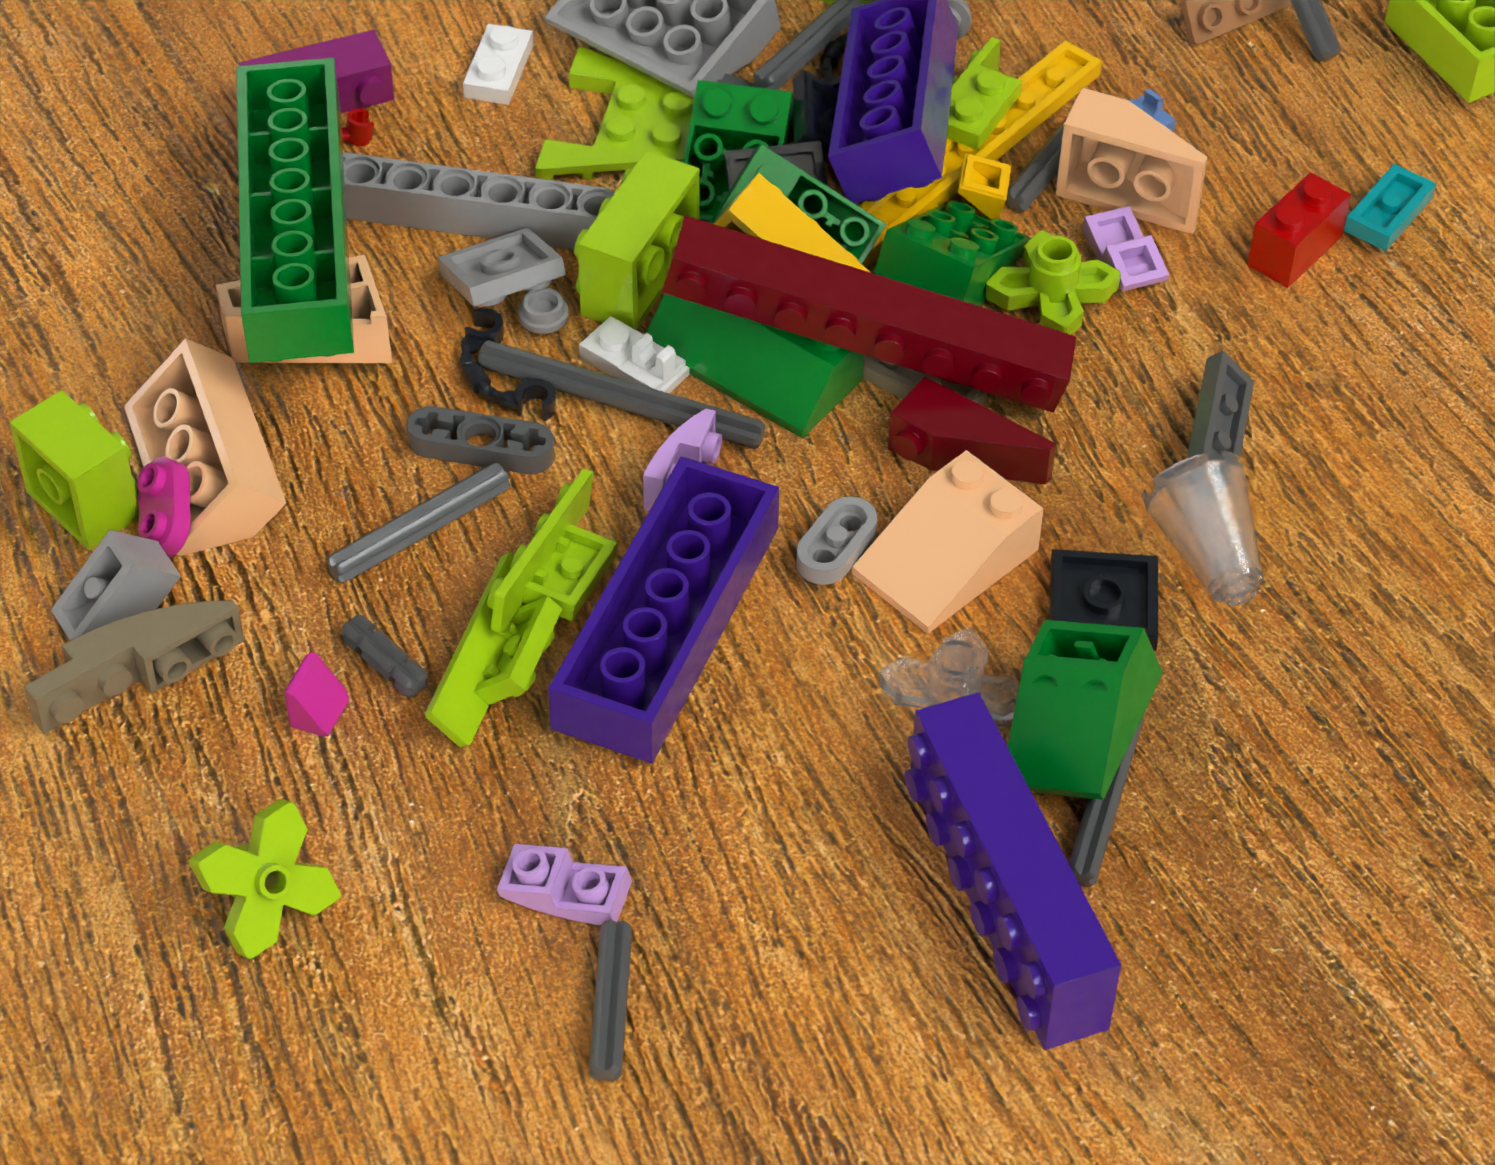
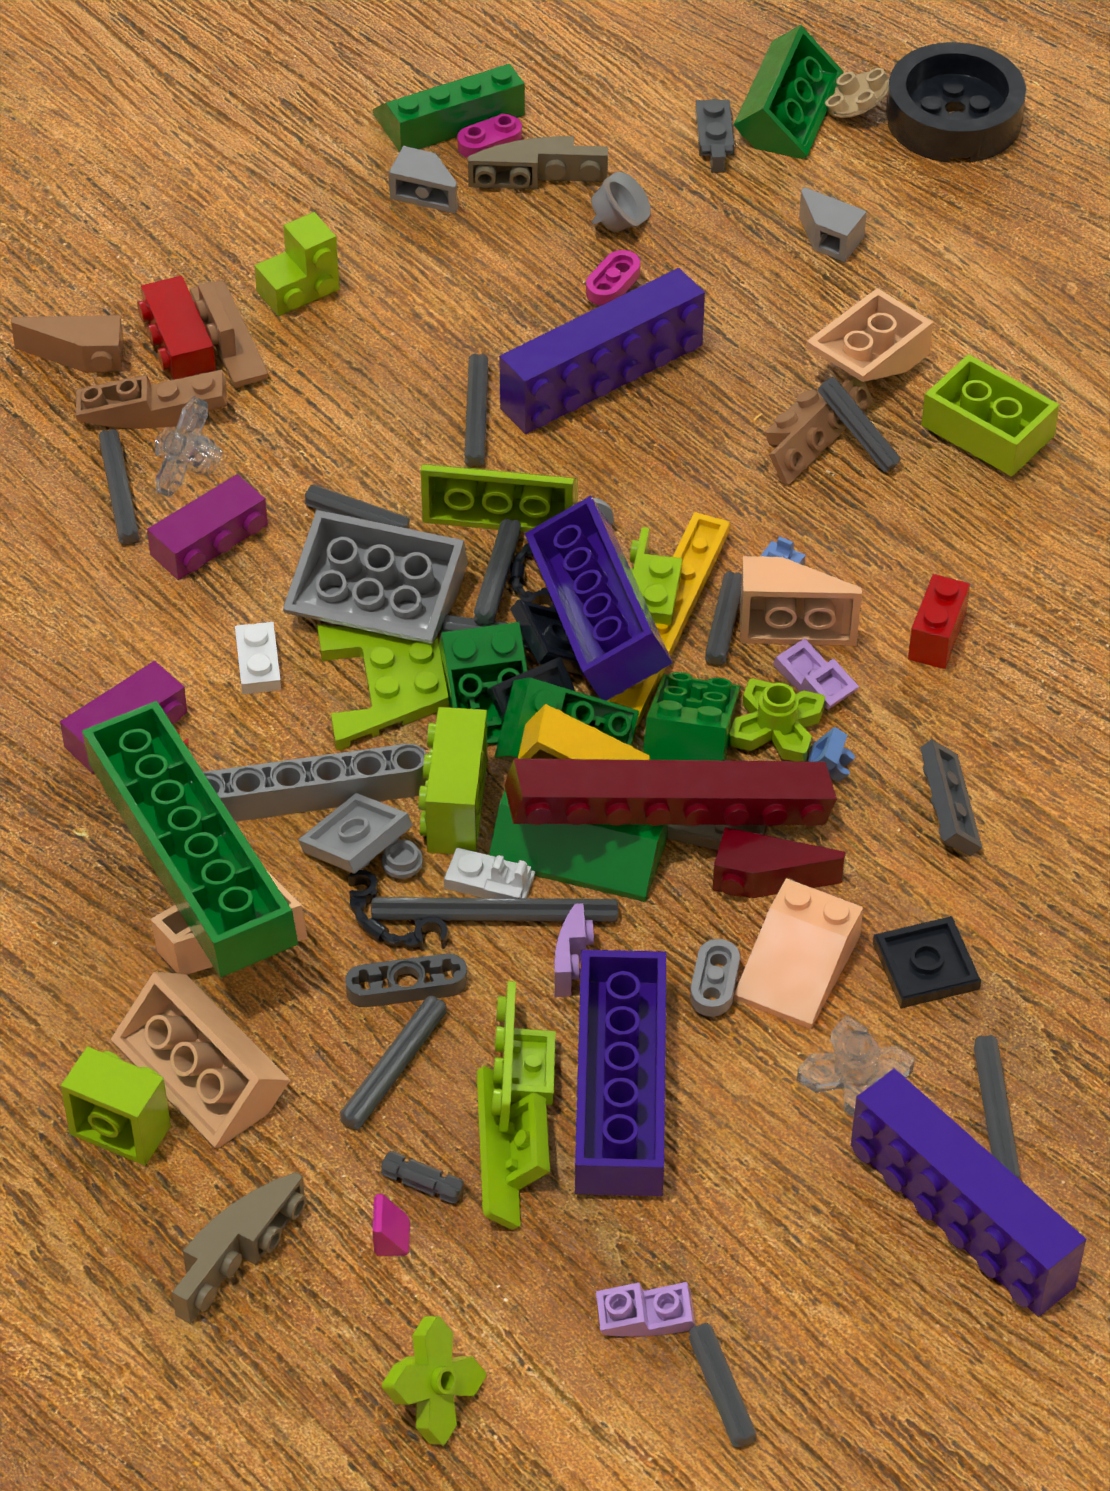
camera: 20 degrees left, 0 degrees up
(115, 582) = (191, 1192): light grey slope -> none
(164, 503) = (194, 1107): dark pink plate -> none
(984, 184) = (691, 652): yellow slope -> none
(1080, 705) = (958, 1050): green slope -> none
(1097, 336) = (830, 750): none -> medium blue tile
(1210, 524) = (984, 882): clear cone -> none
(1390, 207) = (994, 581): teal plate -> none

